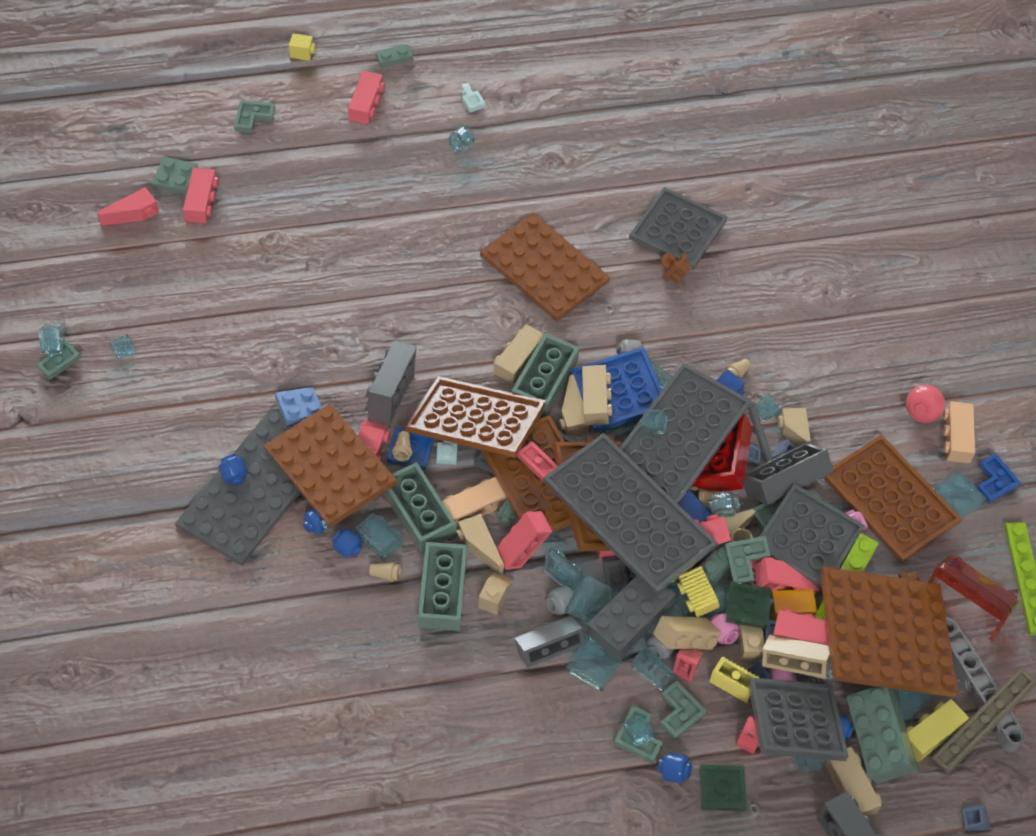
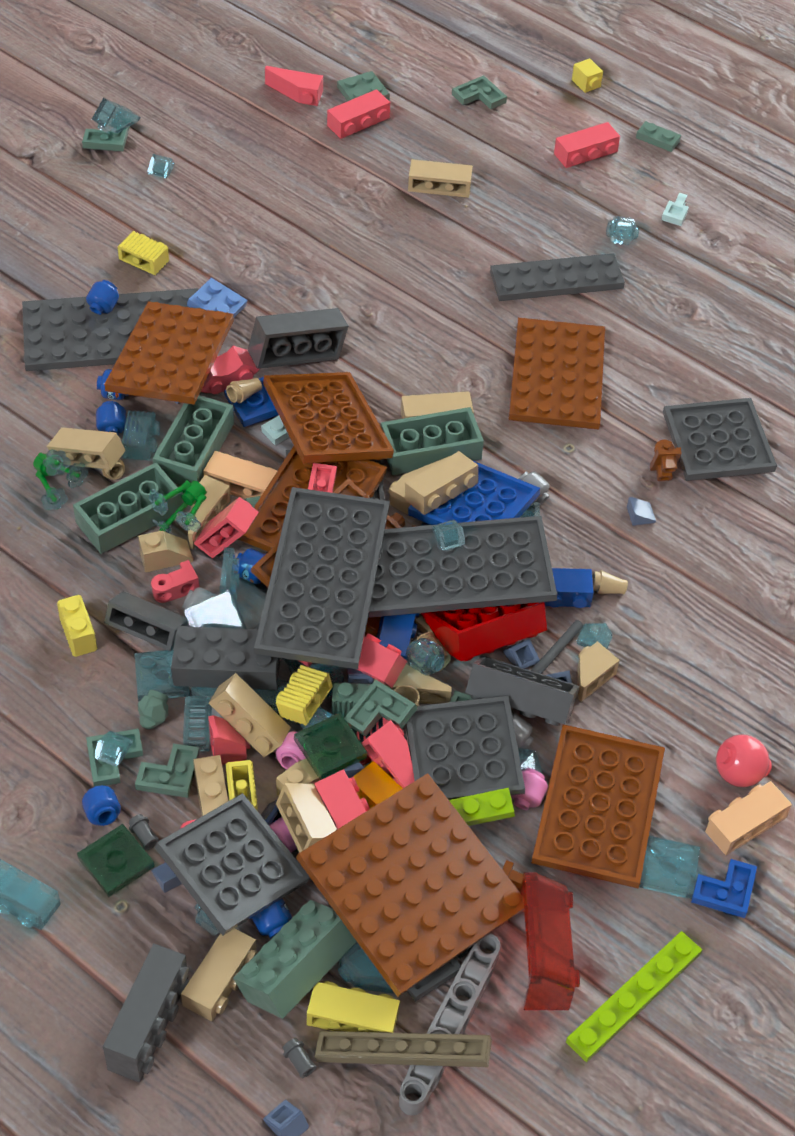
camera: 50 degrees right, 5 degrees down
(204, 415) = (143, 252): none -> light yellow brick
(312, 197) = (440, 178): none -> tan brick
(354, 610) = (53, 464): none -> clear light blue plant
(367, 575) = (89, 447): none -> tan brick
(462, 204) = (556, 277): none -> dark grey plate
(473, 563) = (192, 494): none -> plant
(515, 685) = (77, 625): none -> light yellow brick
(527, 609) = (175, 584): none -> coral leg
(559, 543) = (246, 562): none -> blue head
(623, 687) = (153, 709): none -> sand green rock
(696, 312) = (640, 511): none -> sand blue slope
(713, 757) = (140, 826): none -> dark grey pin
(722, 699) = (210, 783): none -> tan brick
(755, 763) = (165, 877): none -> sand blue slope
(941, 781) = (295, 1052): none -> dark grey pin

